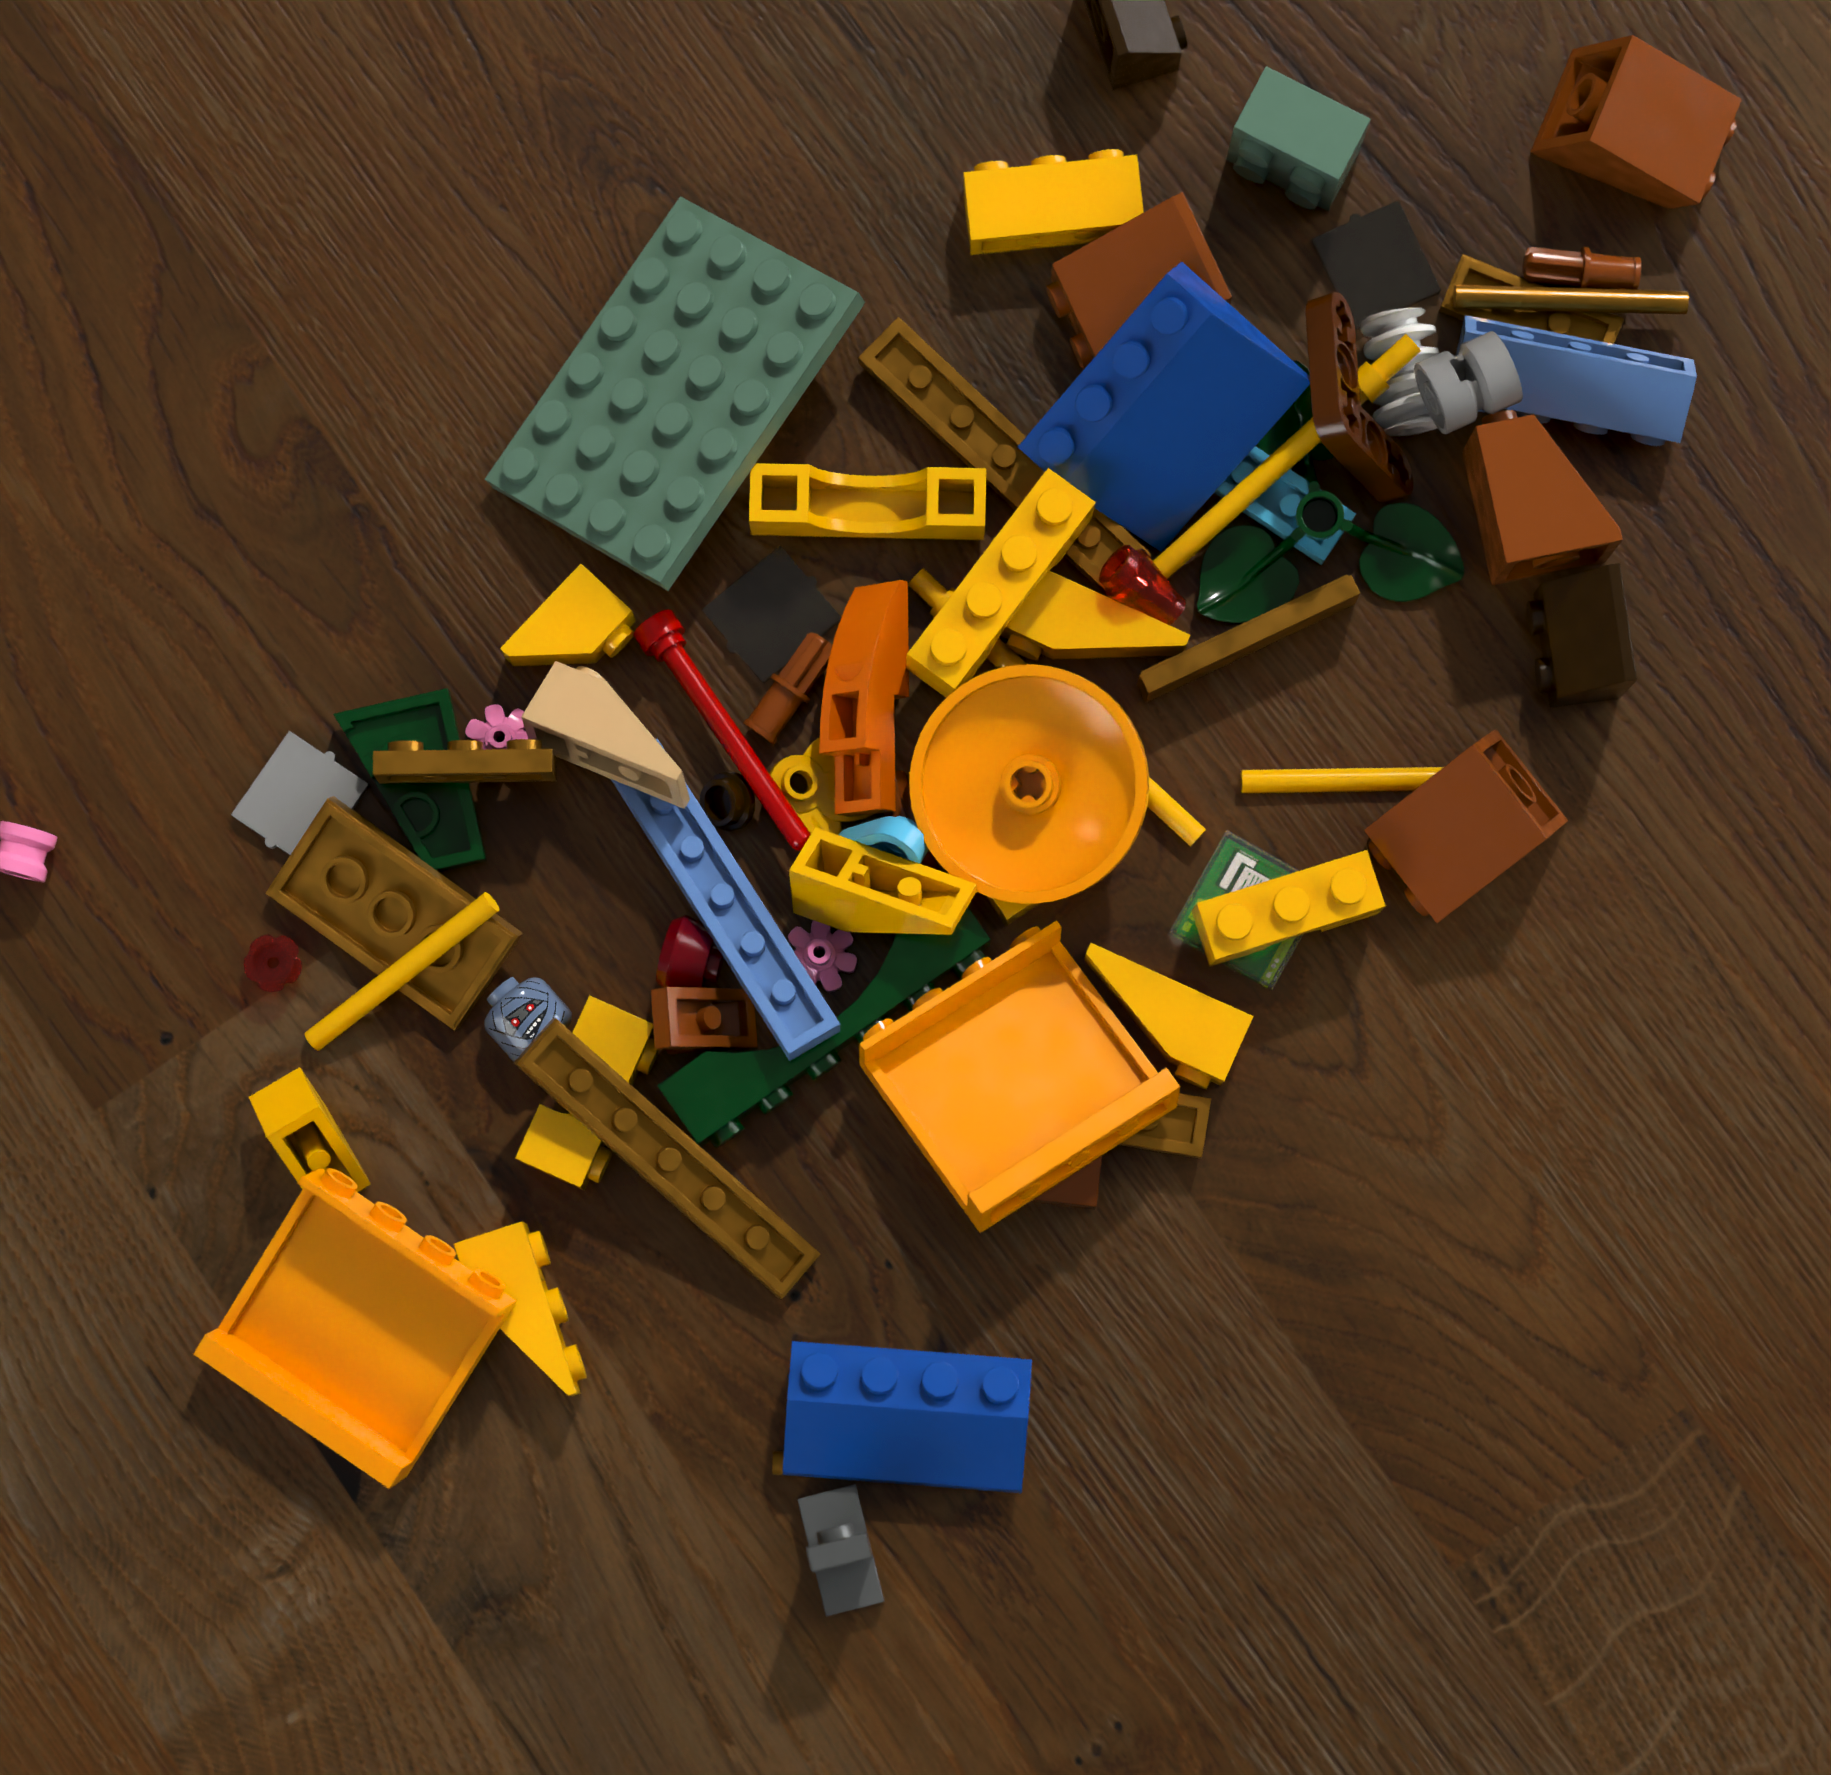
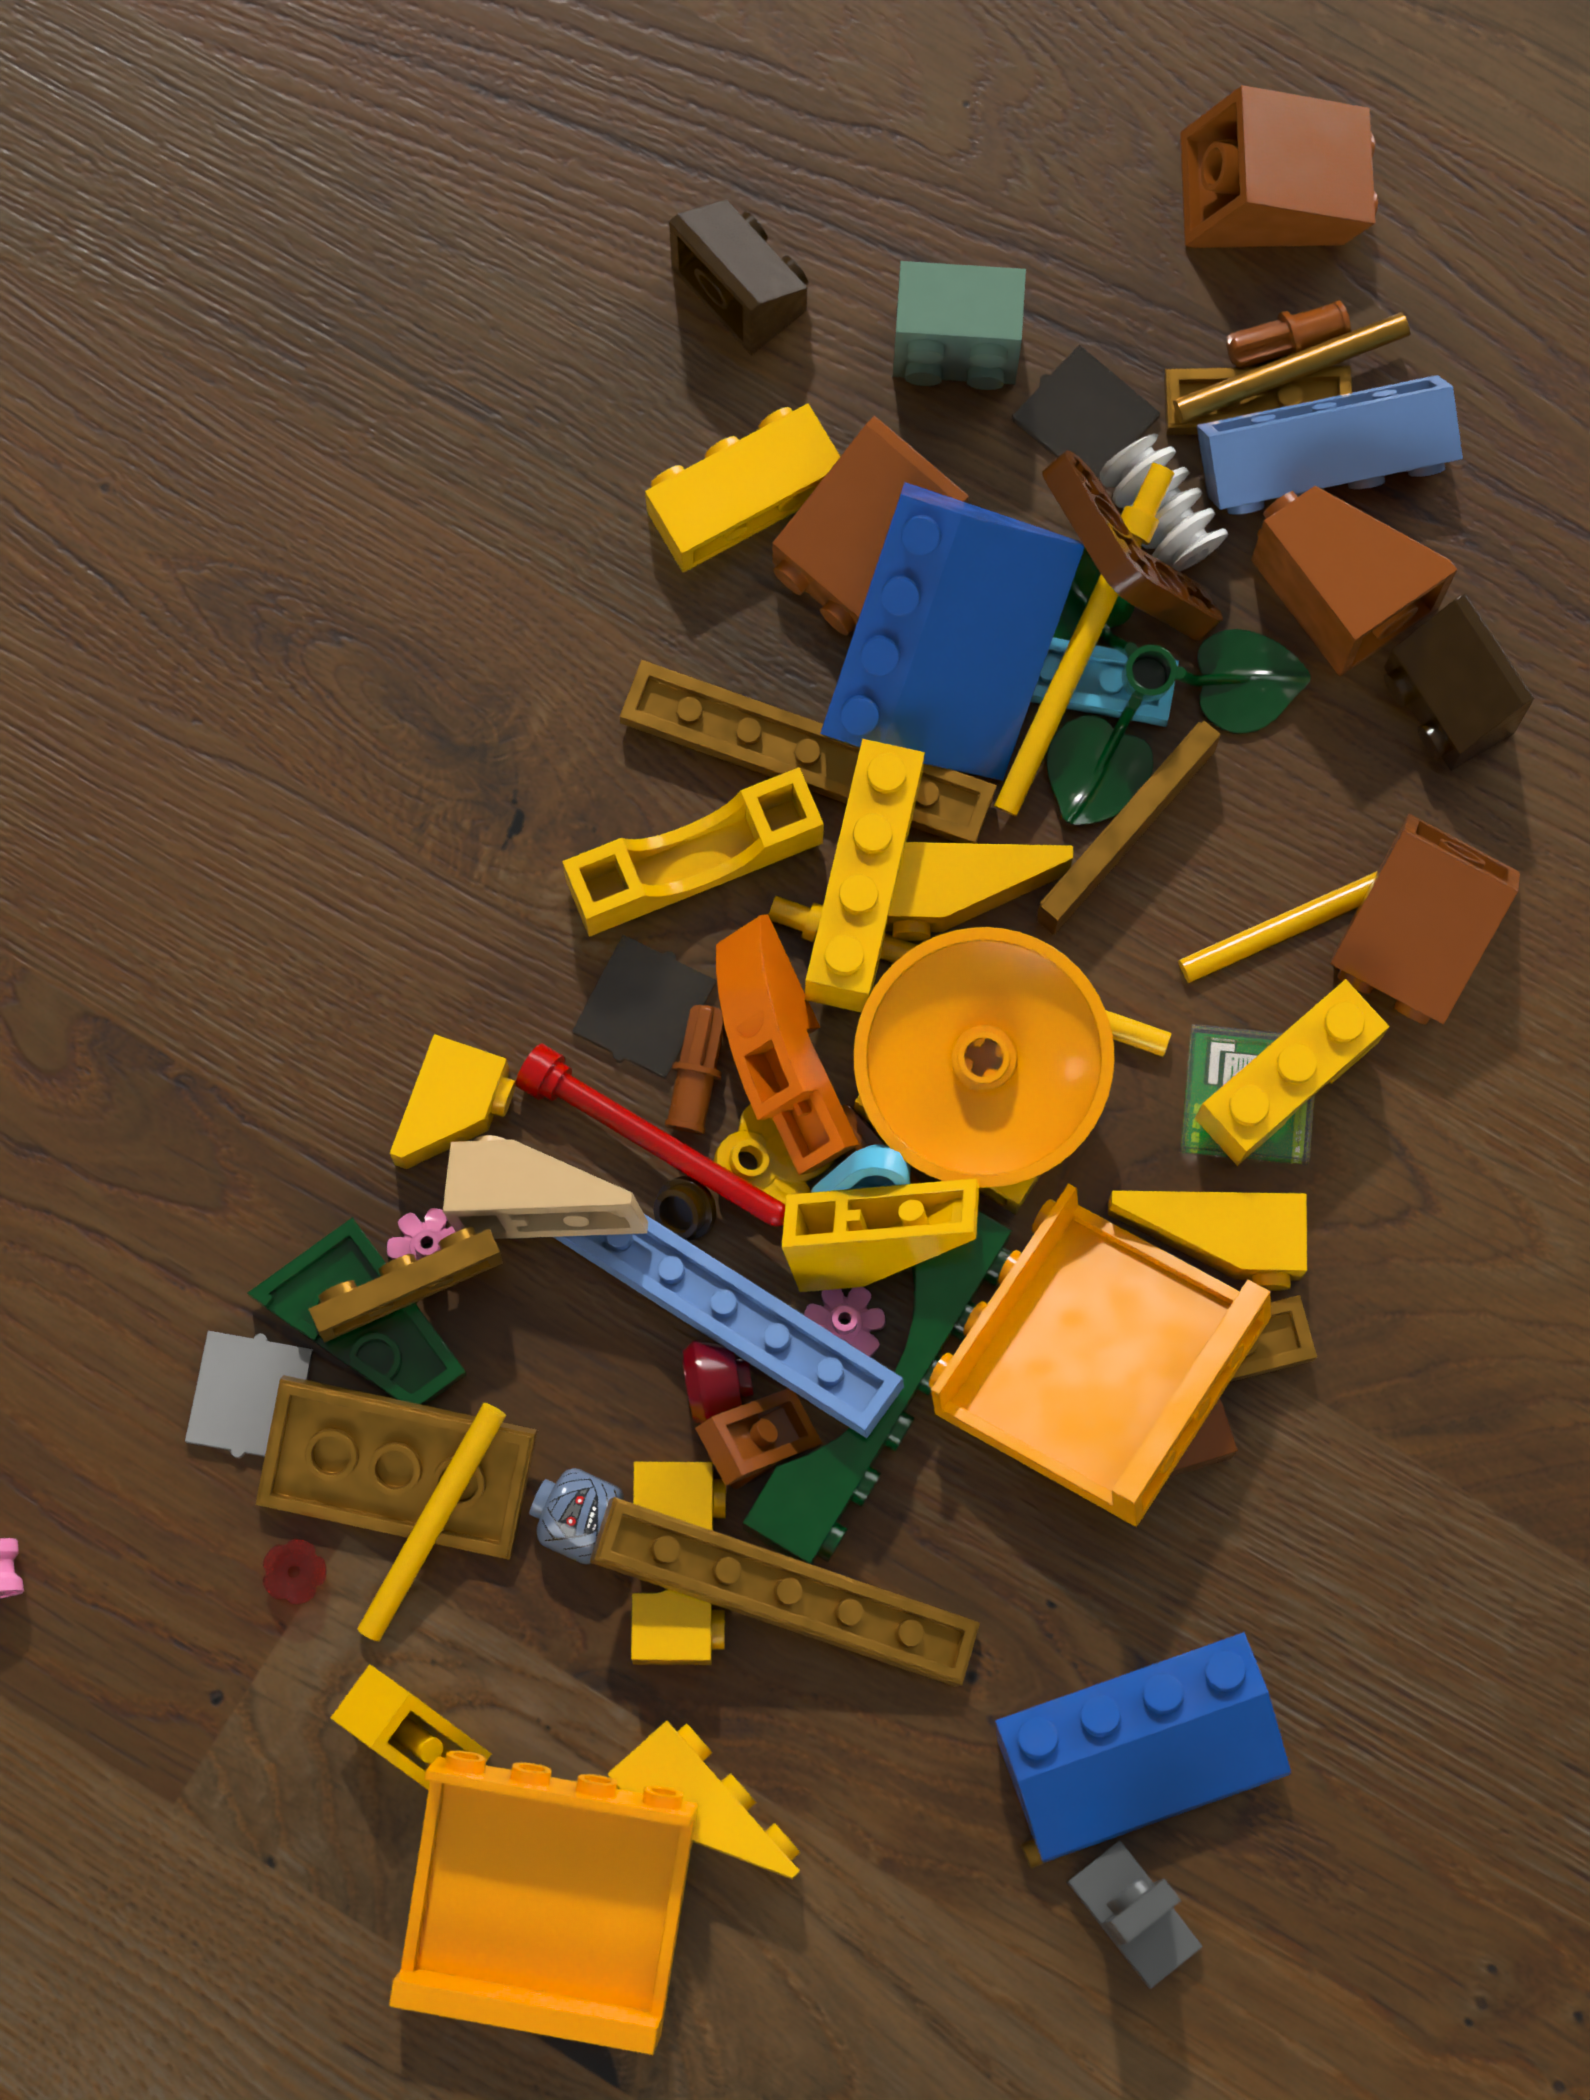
camera: 25 degrees left, 5 degrees down
(675, 392) = (453, 826): sand green plate -> none
(1138, 583) = (999, 817): clear red cone -> none
(1465, 383) = (1244, 474): light grey wheel -> none

